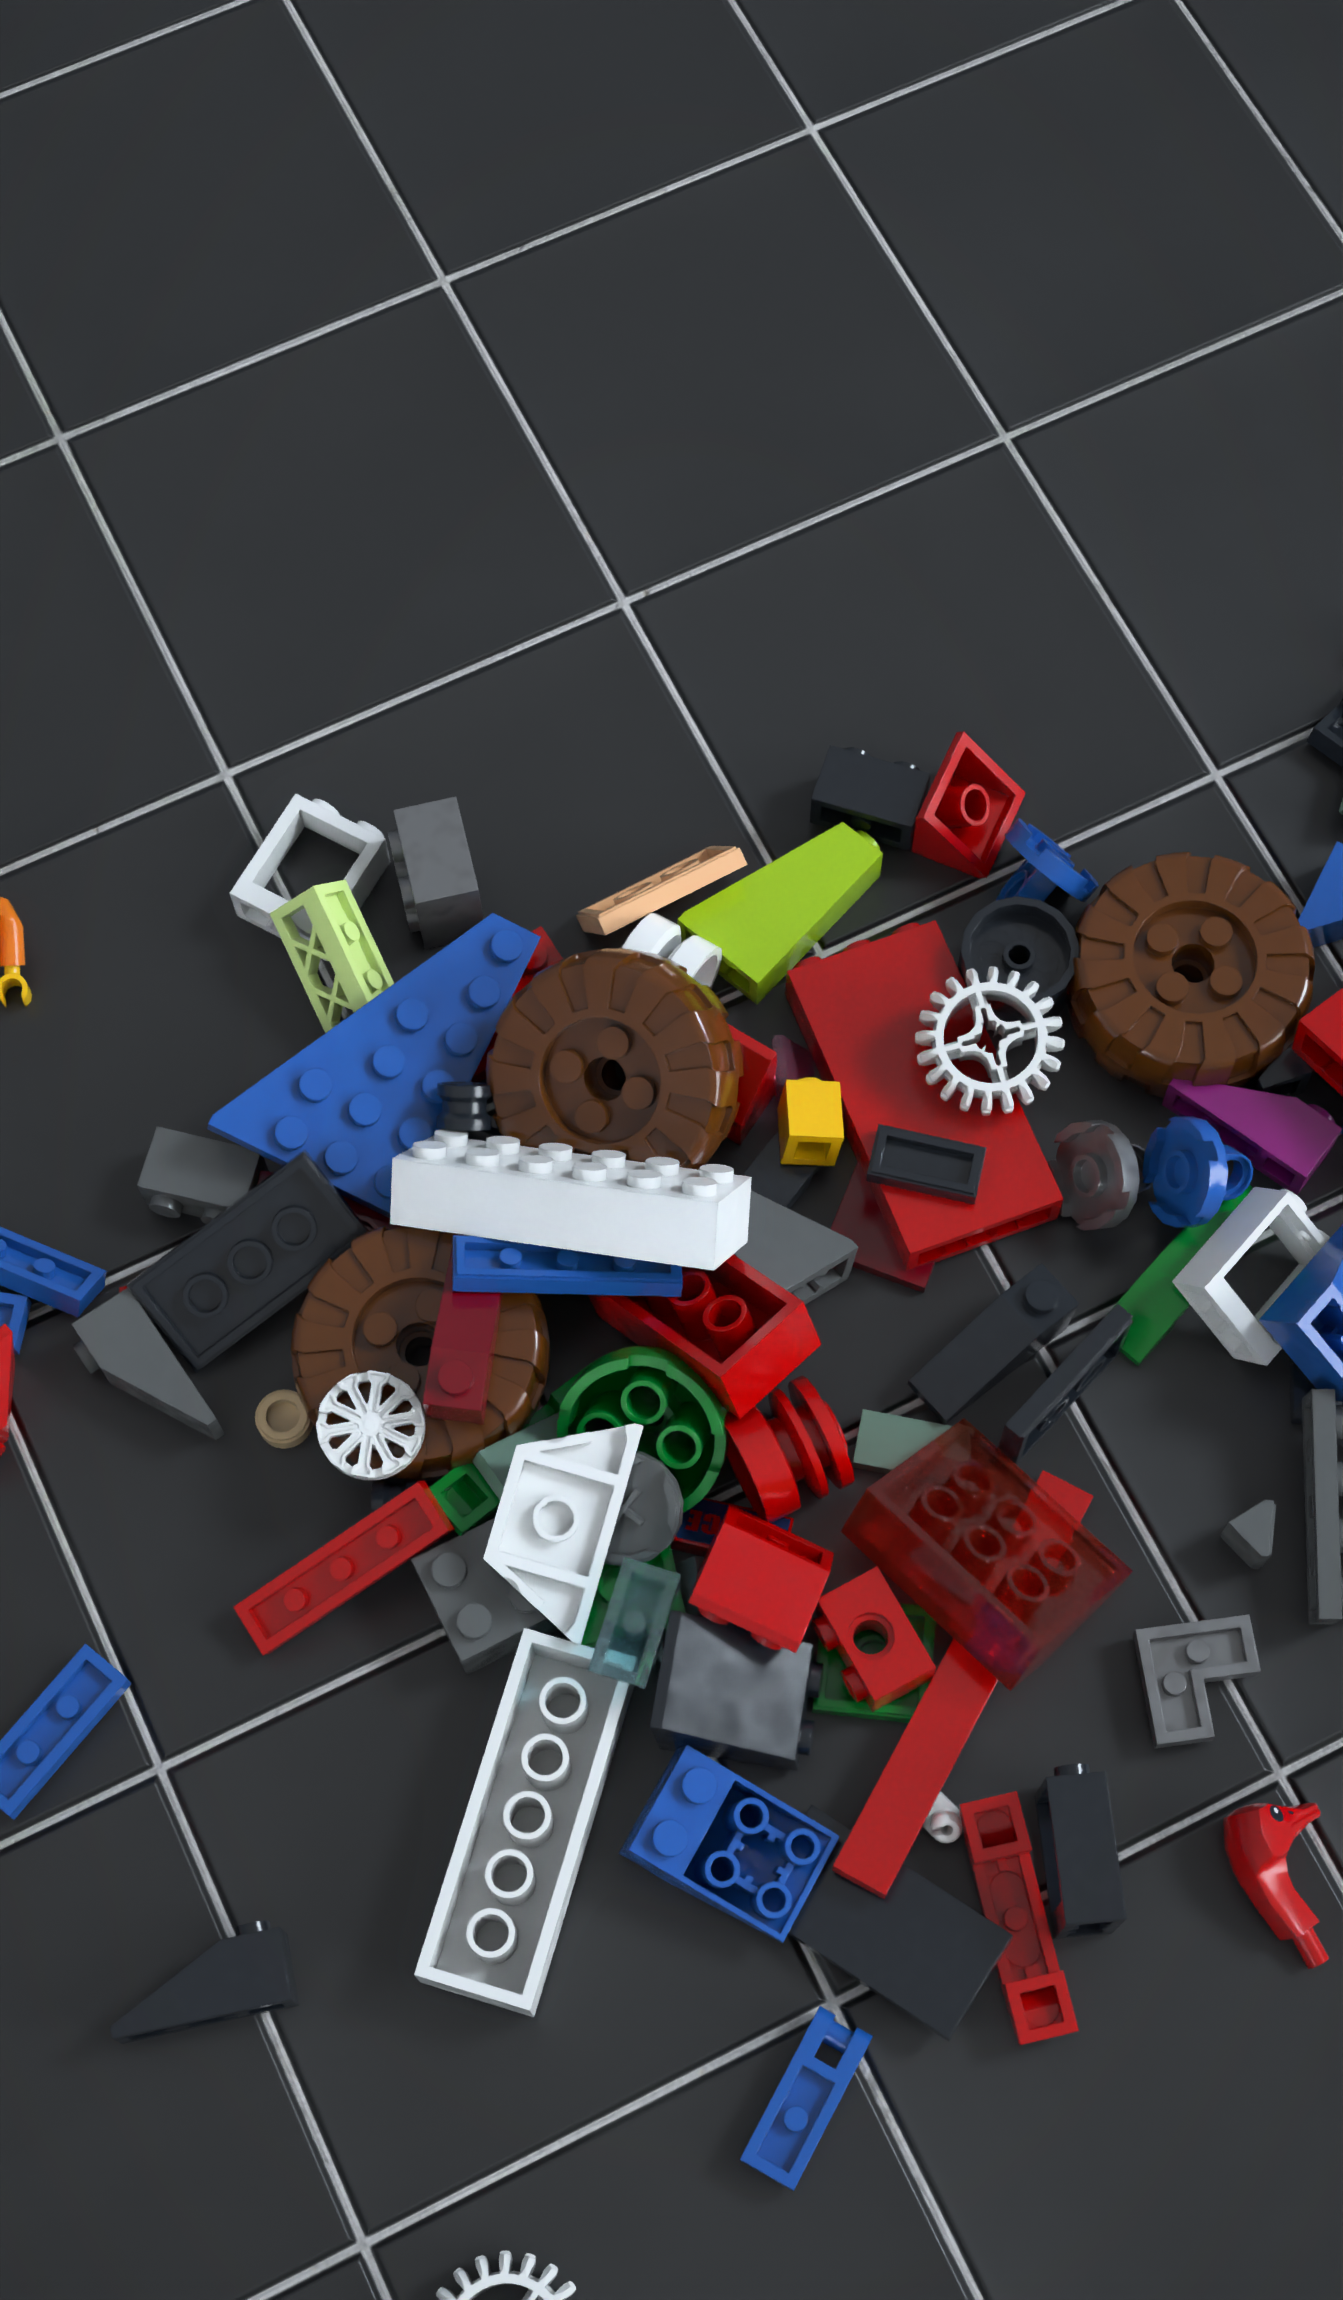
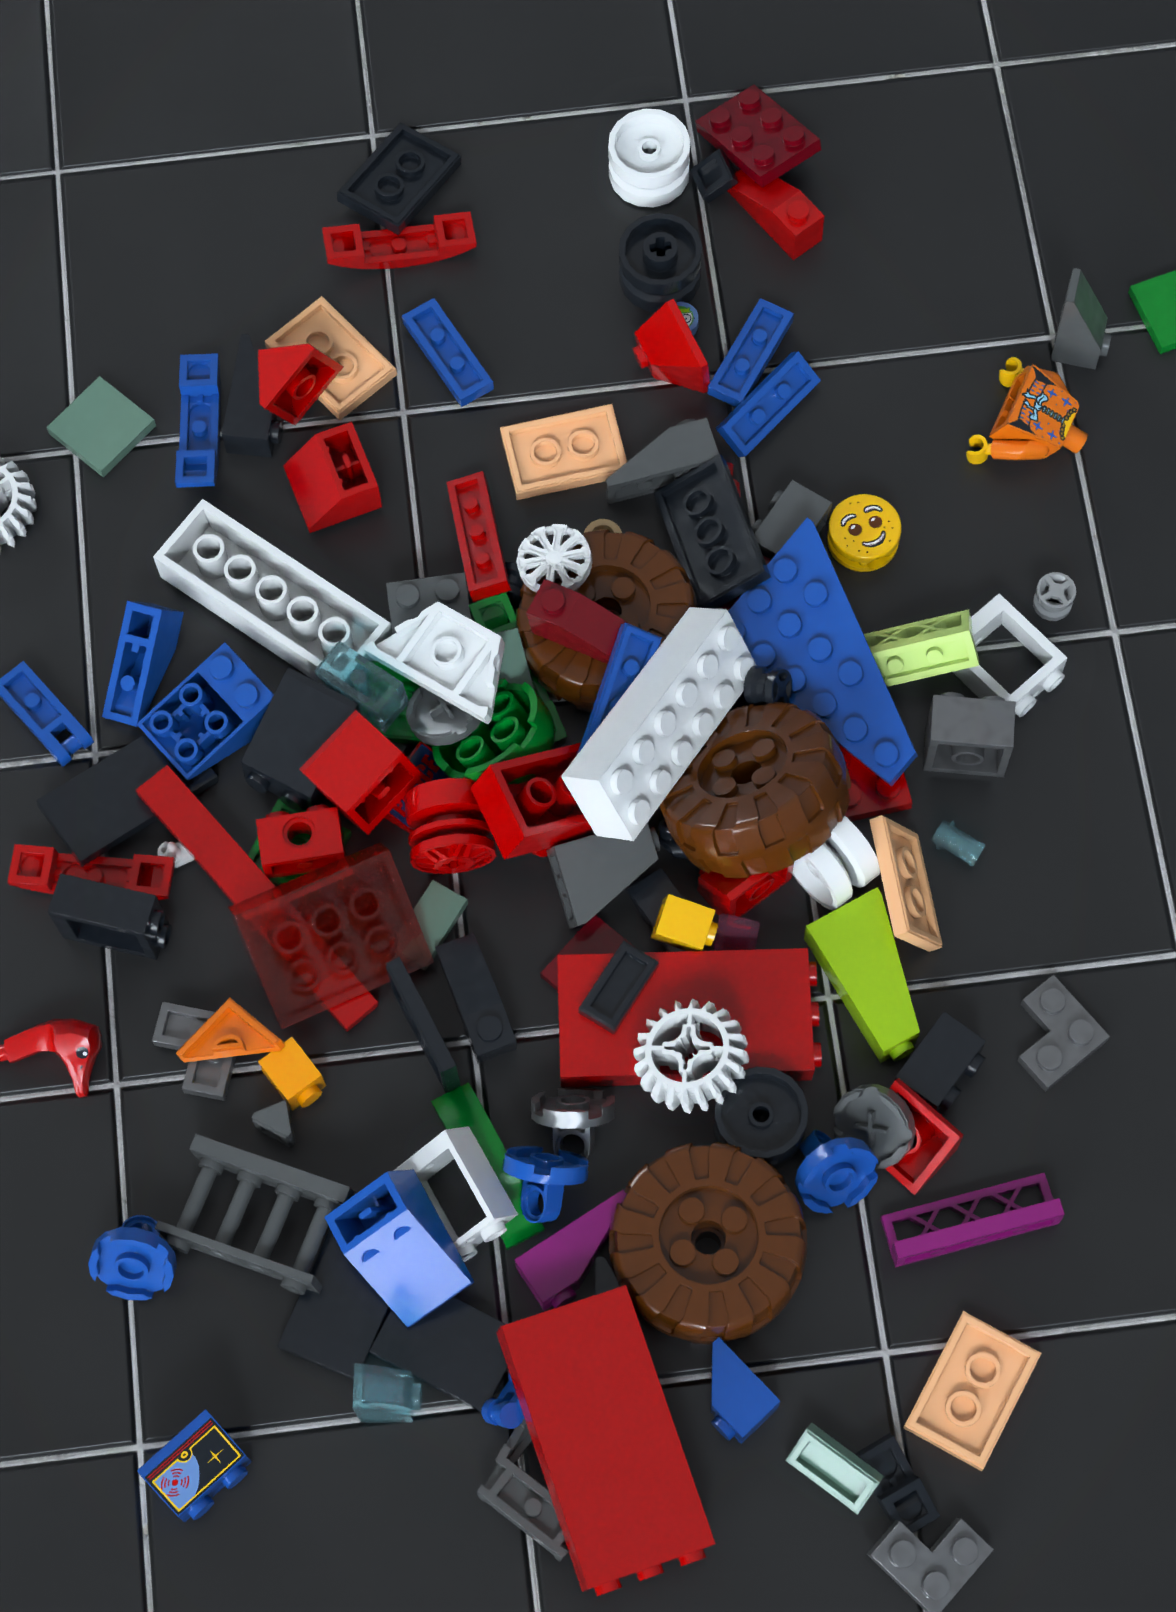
camera: 110 degrees right, 0 degrees up
(100, 1906) = (327, 330): none -> light nougat tile
(162, 1516) = (563, 451): none -> light nougat tile
(168, 1923) = (293, 379): none -> red slope
(178, 1085) = (864, 532): none -> yellow head
(203, 830) = (1058, 587): none -> light grey wheel
(271, 2057) = (199, 421): none -> blue slope
(310, 1813) = (332, 478): none -> red slope
(314, 2215) = (101, 426): none -> sand green tile
(575, 862) = (957, 842): none -> clear light blue pin
(680, 1982) = (141, 659): none -> blue slope
(772, 684) = (1069, 1037): none -> flat silver plate
(971, 842) = (878, 1119): none -> dark grey tile
(1049, 712) = (977, 1231): none -> magenta fence
(1169, 1627) = (229, 1034): none -> orange tile
(1182, 1537) = (293, 1075): none -> light orange brick
(1221, 674) = (972, 1391): none -> light nougat tile

